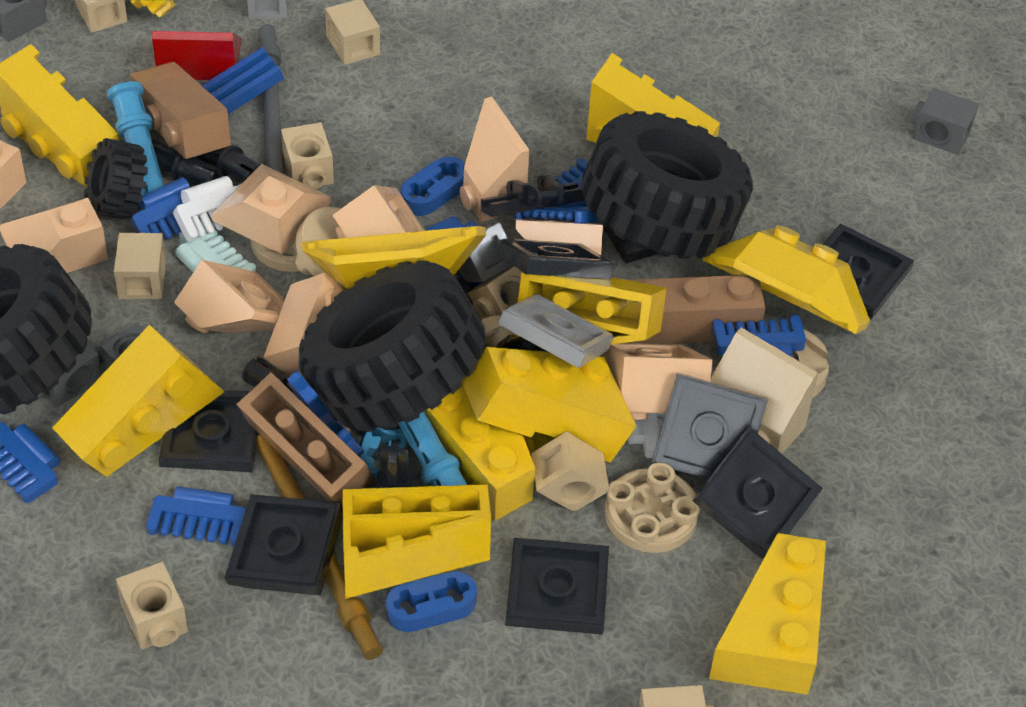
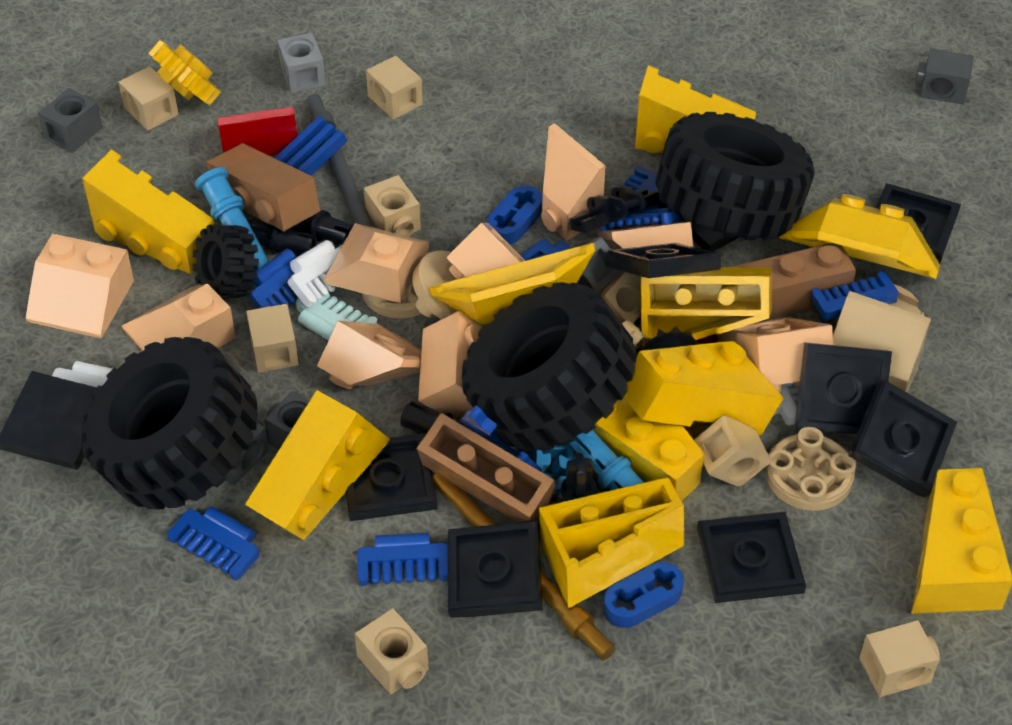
camera: 10 degrees left, 0 degrees up
(556, 330) = (691, 324): light grey plate -> none

